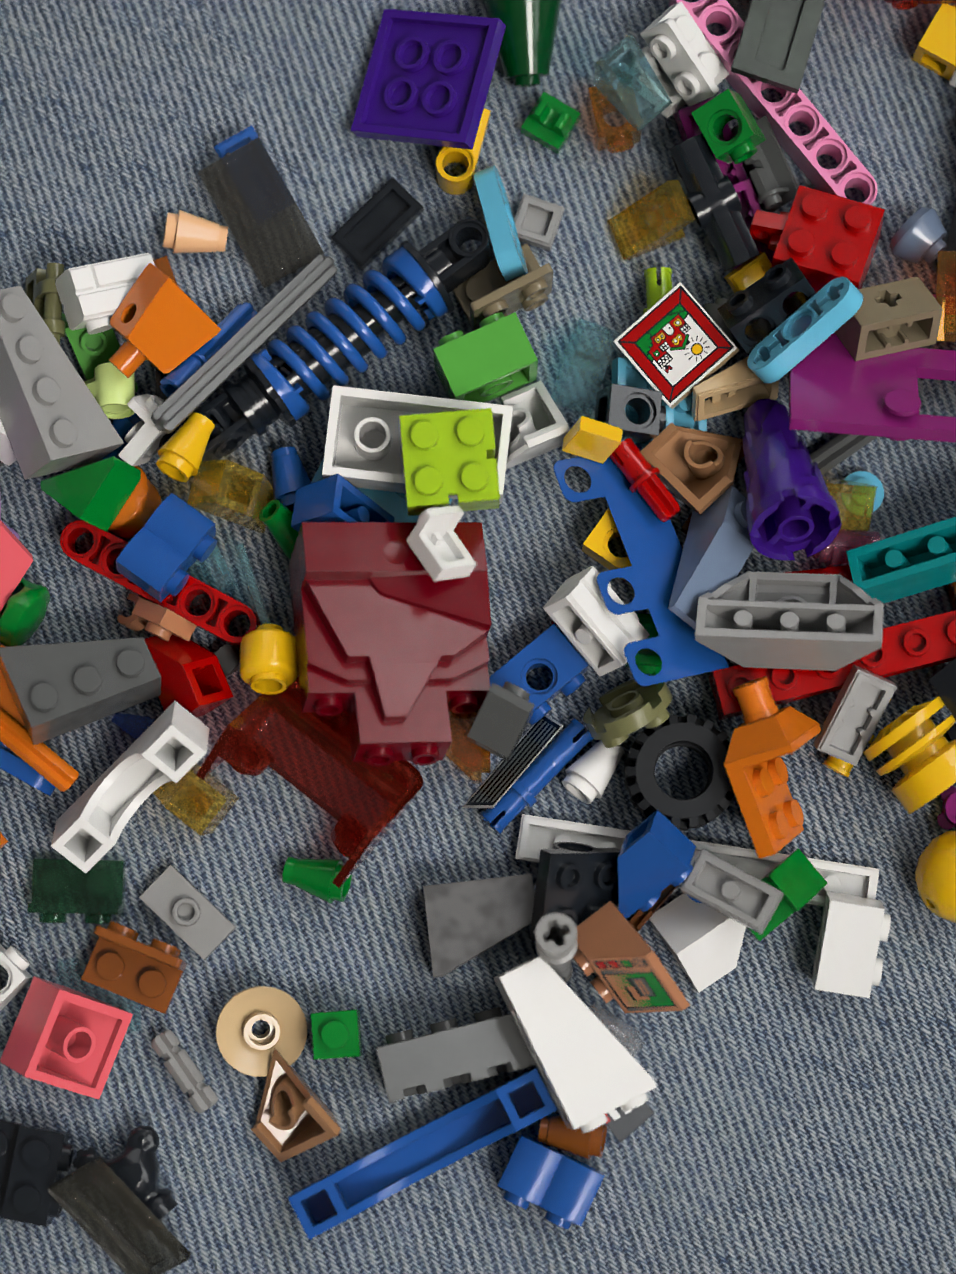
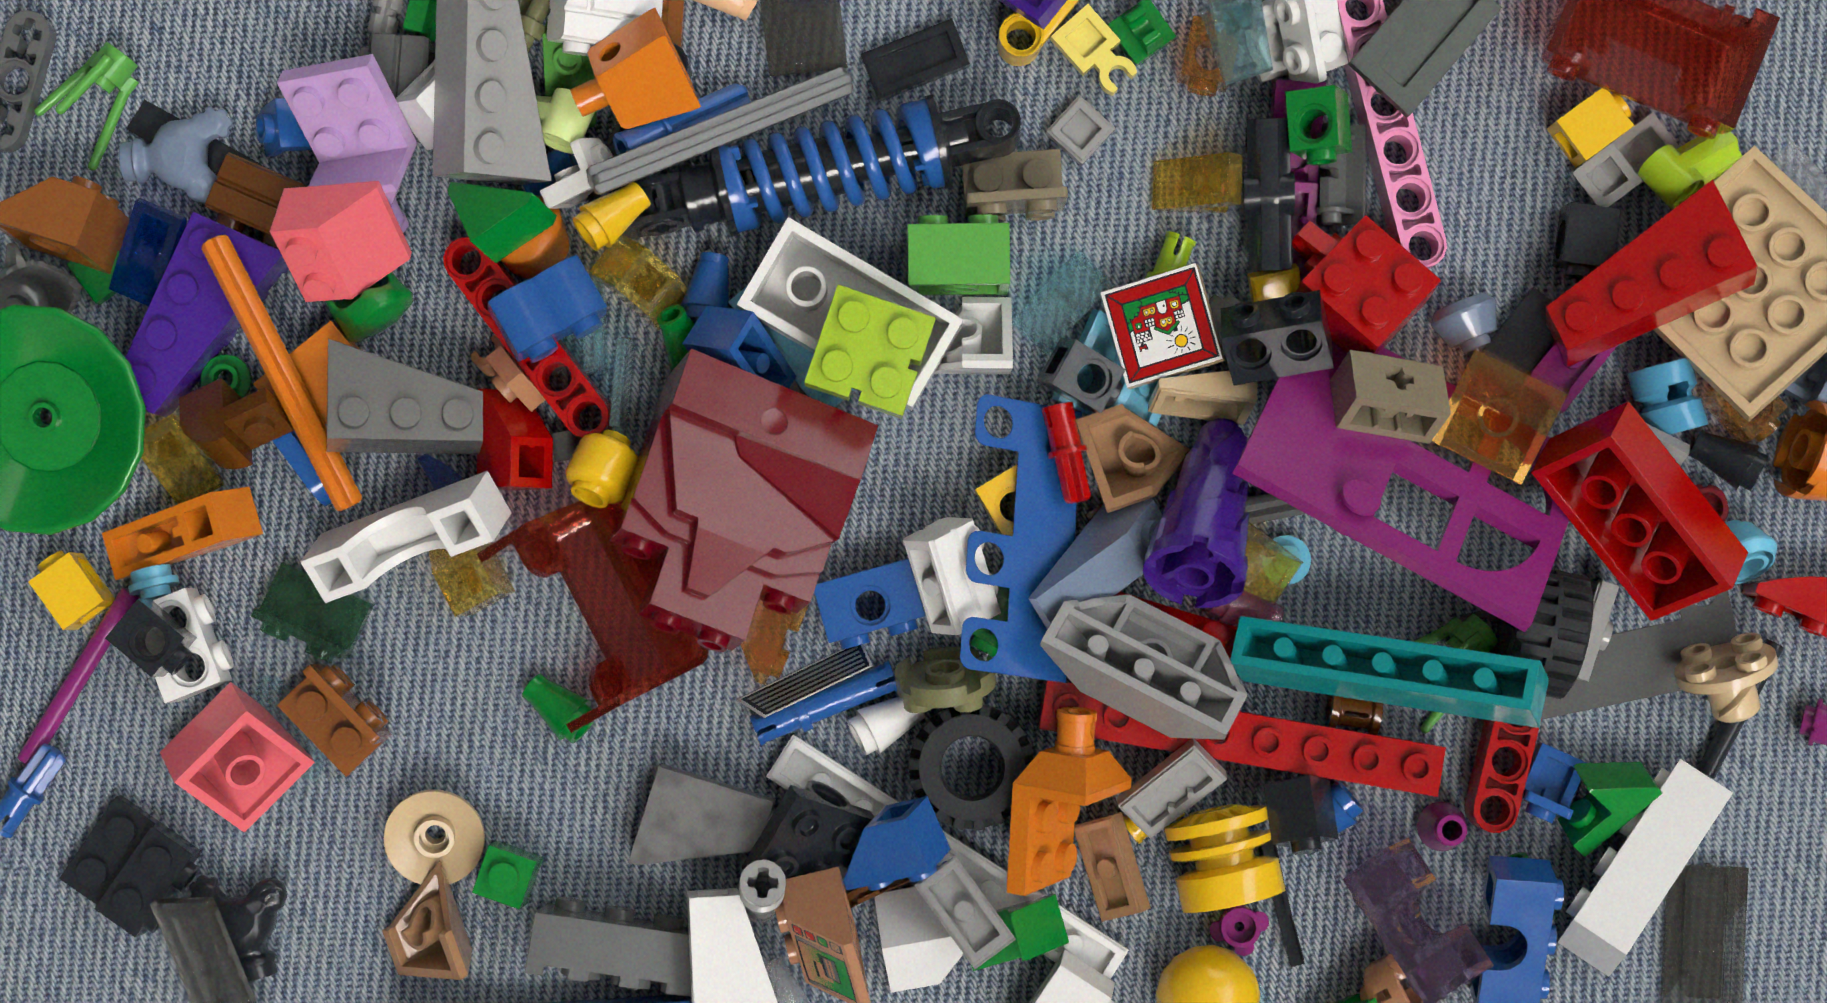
camera: 25 degrees right, 5 degrees up
(184, 1071) = (341, 842): light grey axle -> none
(187, 912) = (413, 684): light grey plate -> none
(438, 544) = (820, 435): white bracket -> none
(500, 223) = (1039, 118): medium azure beam -> none
(502, 720) = (808, 637): dark grey slope -> none
(513, 148) = (1089, 44): none -> light yellow plate
(592, 439) = (1030, 388): yellow tile -> none
(819, 316) = (1327, 366): medium azure beam -> none
(834, 805) = (1111, 867): none -> medium nougat plate

